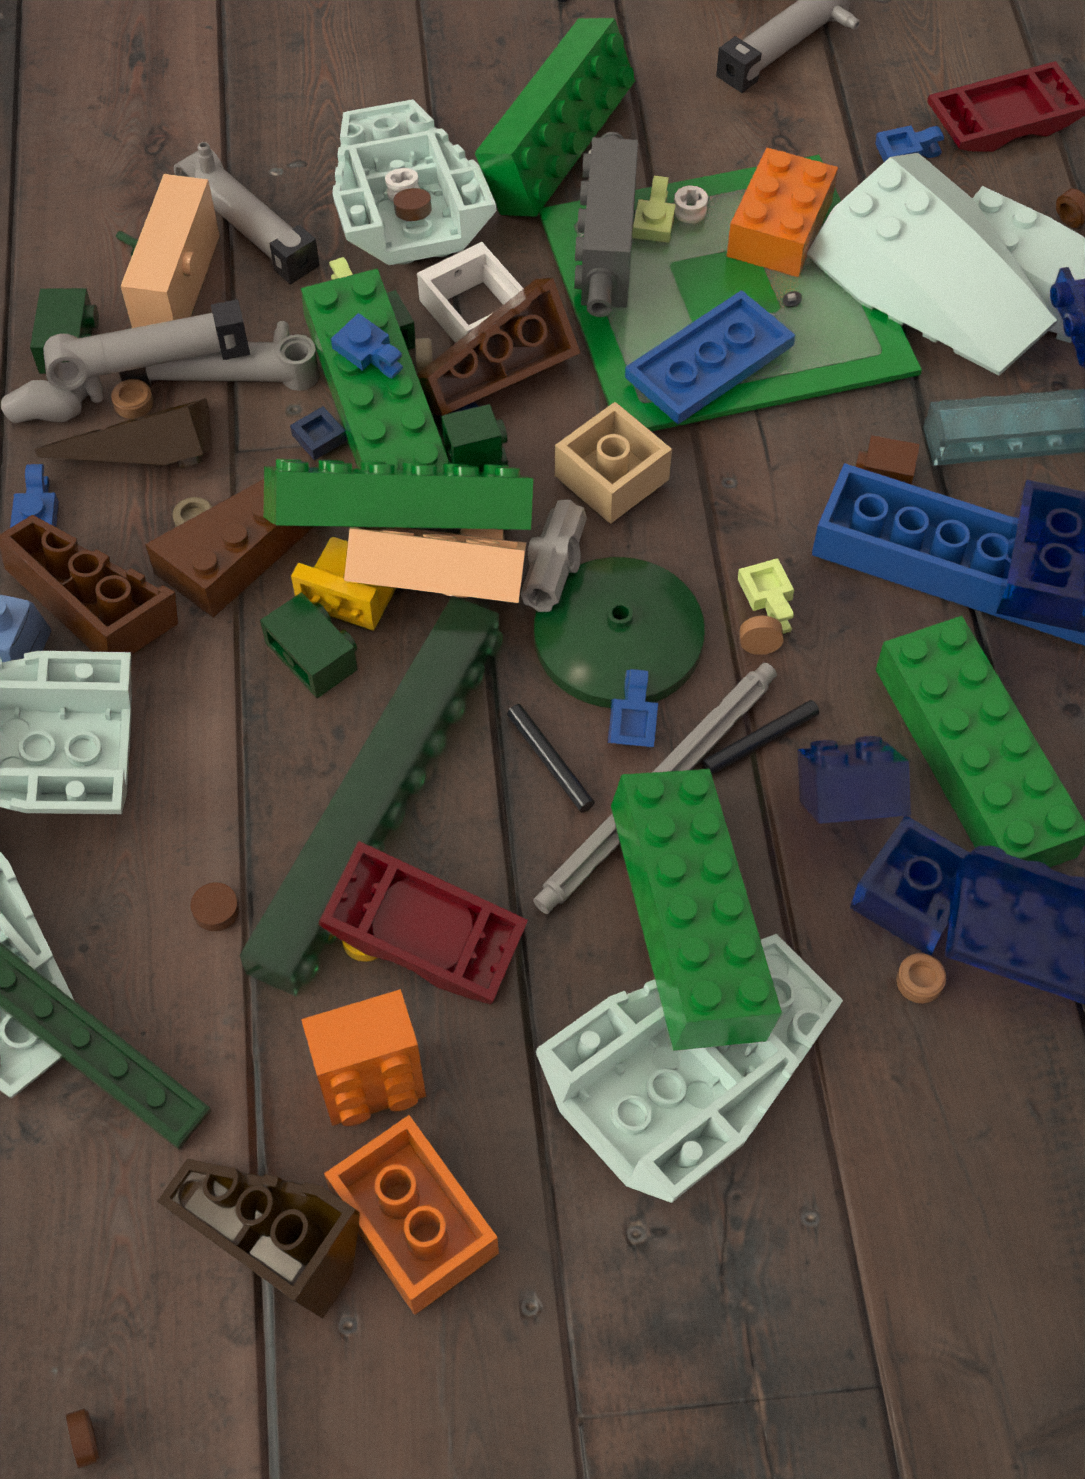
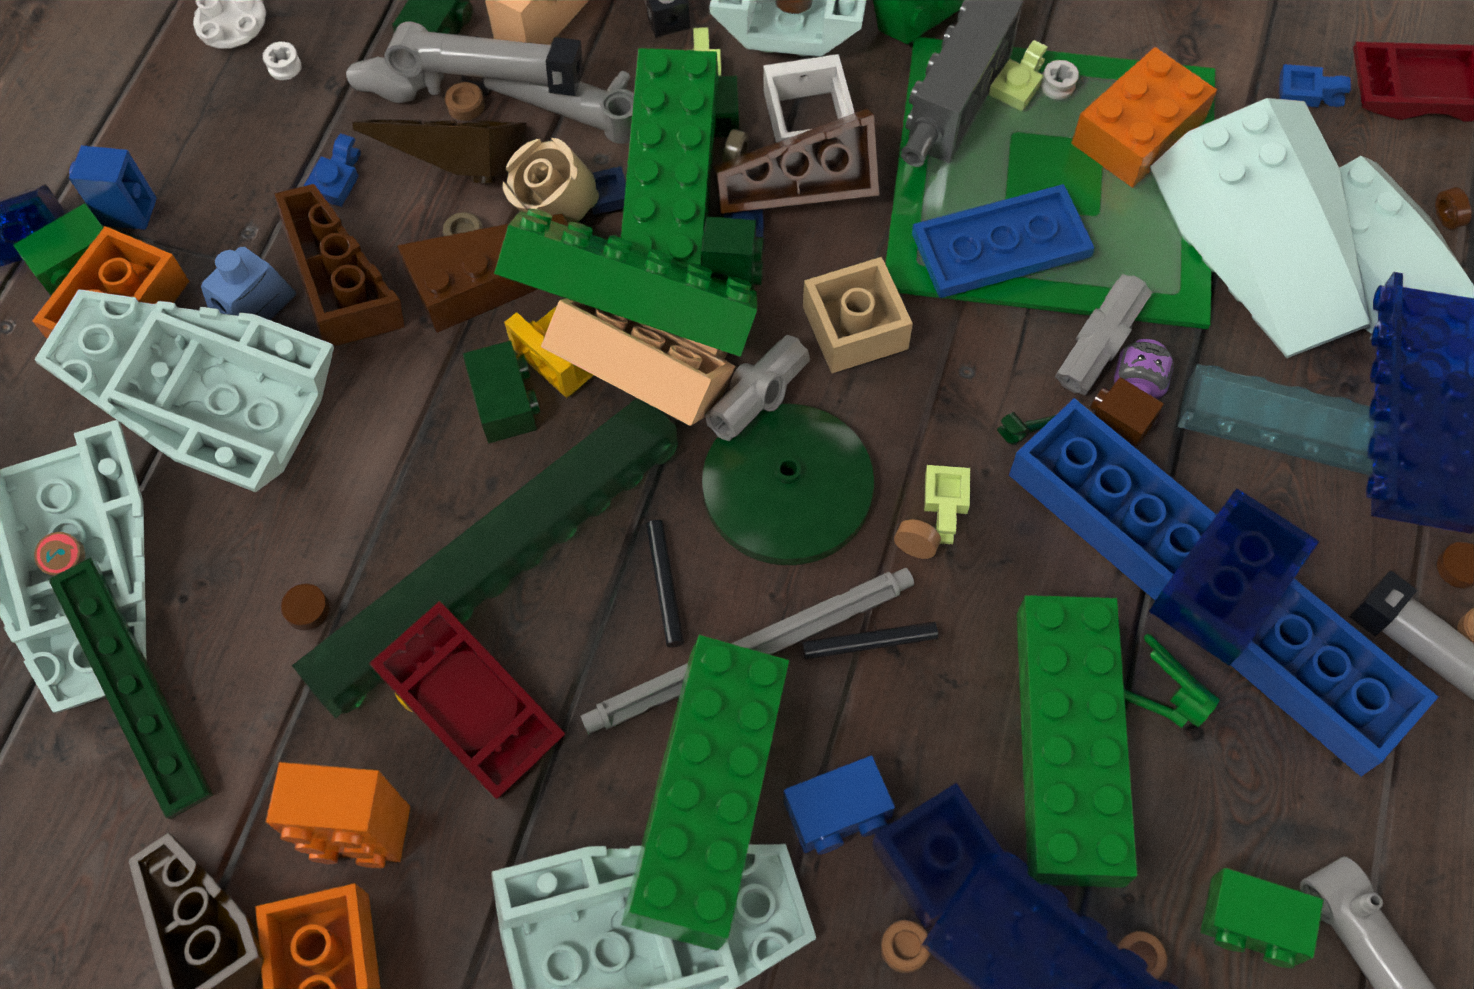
camera: 25 degrees right, 5 degrees up
(261, 432) = (550, 180): none -> tan brick
(365, 344) = (669, 123): blue plate -> none
(633, 718) = (755, 574): blue plate -> none
(792, 299) = (1114, 208): black piece -> none
(799, 514) = (1015, 430): none -> dark green hand
(806, 882) = (839, 806): none -> blue brick
(837, 406) = (1103, 334): none -> light grey piece
(853, 780) = (926, 726): clear blue brick -> none
(885, 418) = (1146, 366): none -> head
(1058, 680) = (1191, 698): none -> green plant

